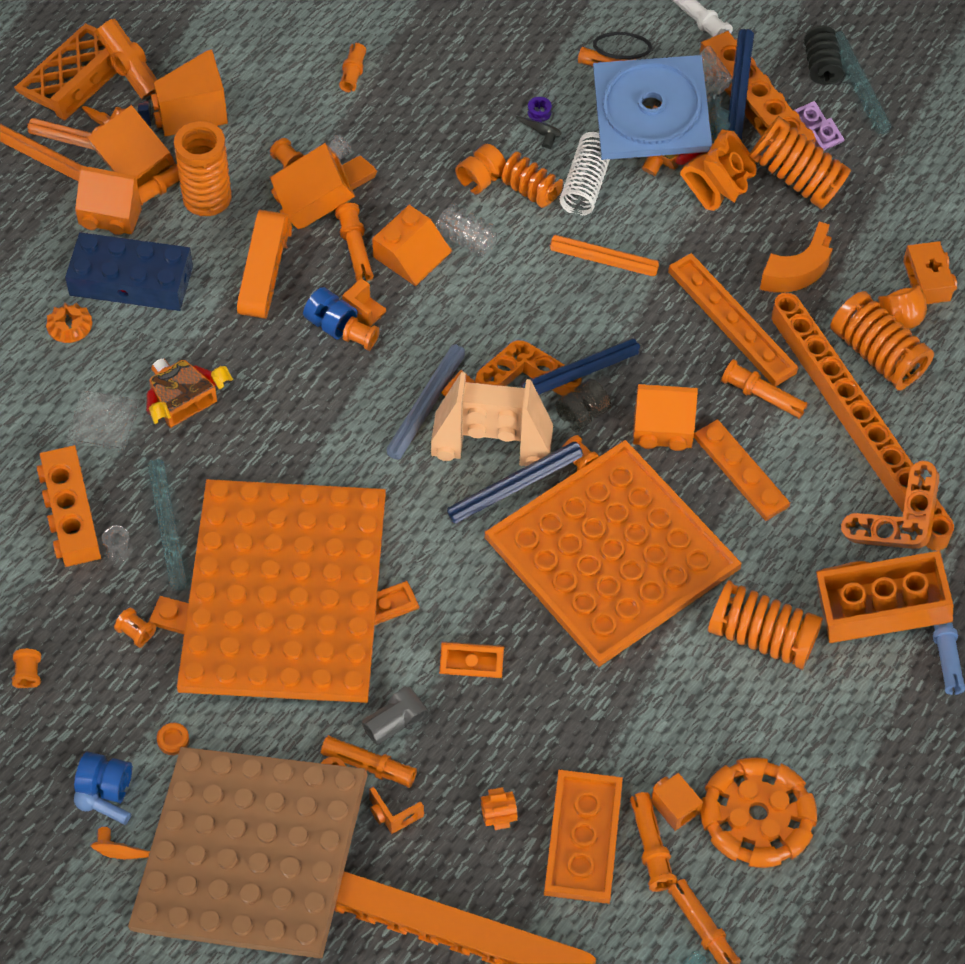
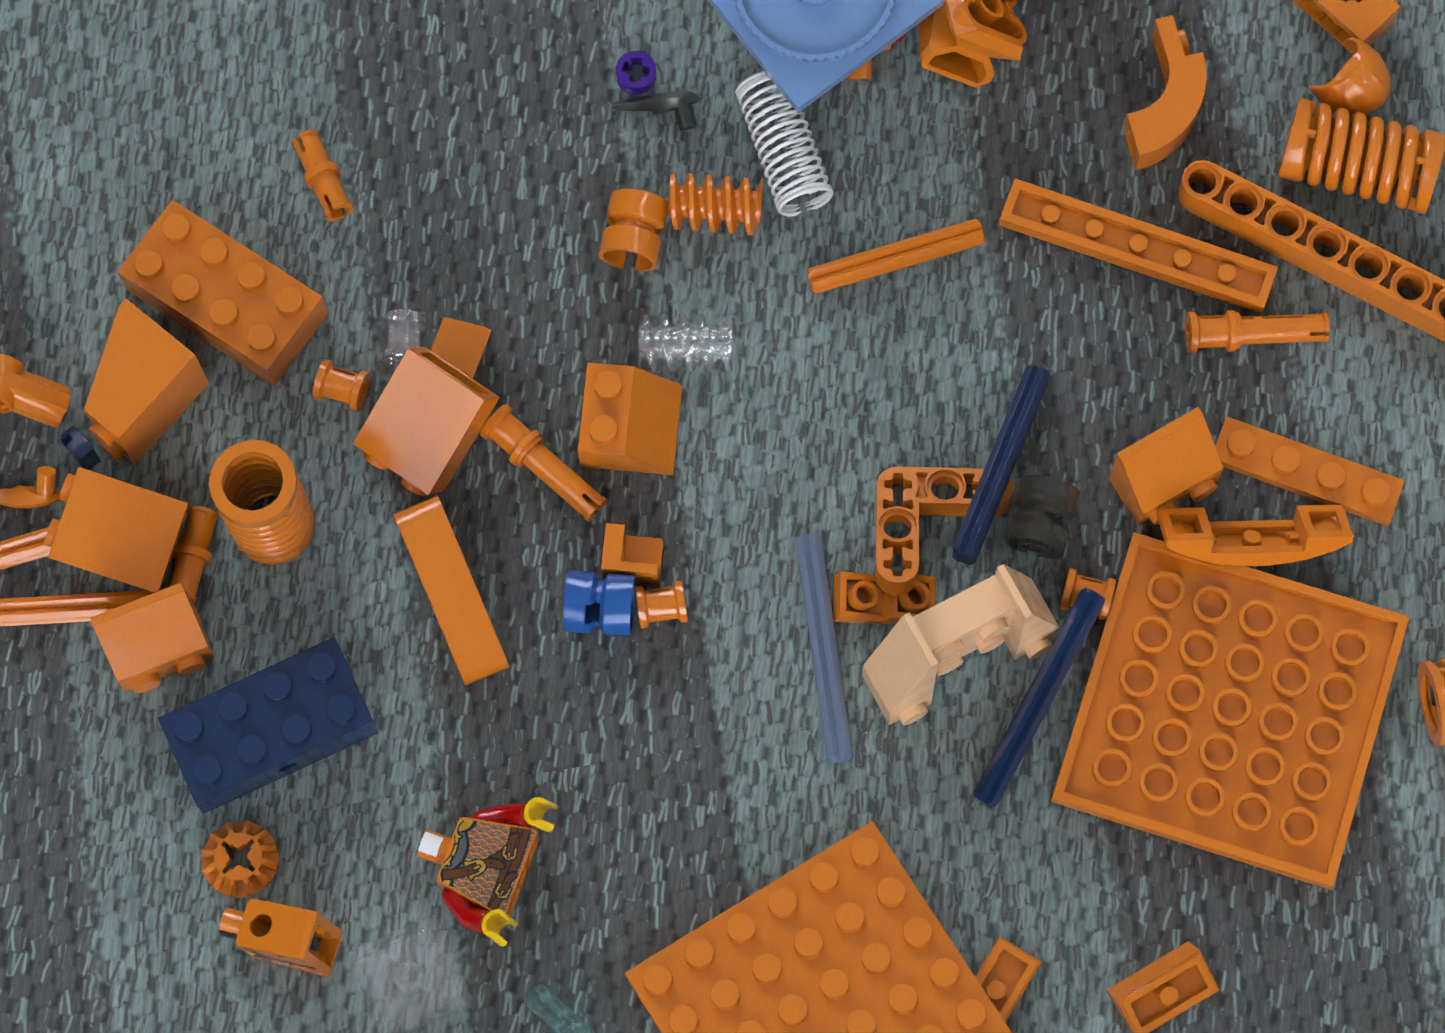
camera: 30 degrees left, 15 degrees up
(50, 352) = (288, 938): none -> orange torso
(264, 86) = (223, 292): none -> orange brick
(684, 482) = (1256, 543): none -> orange slope

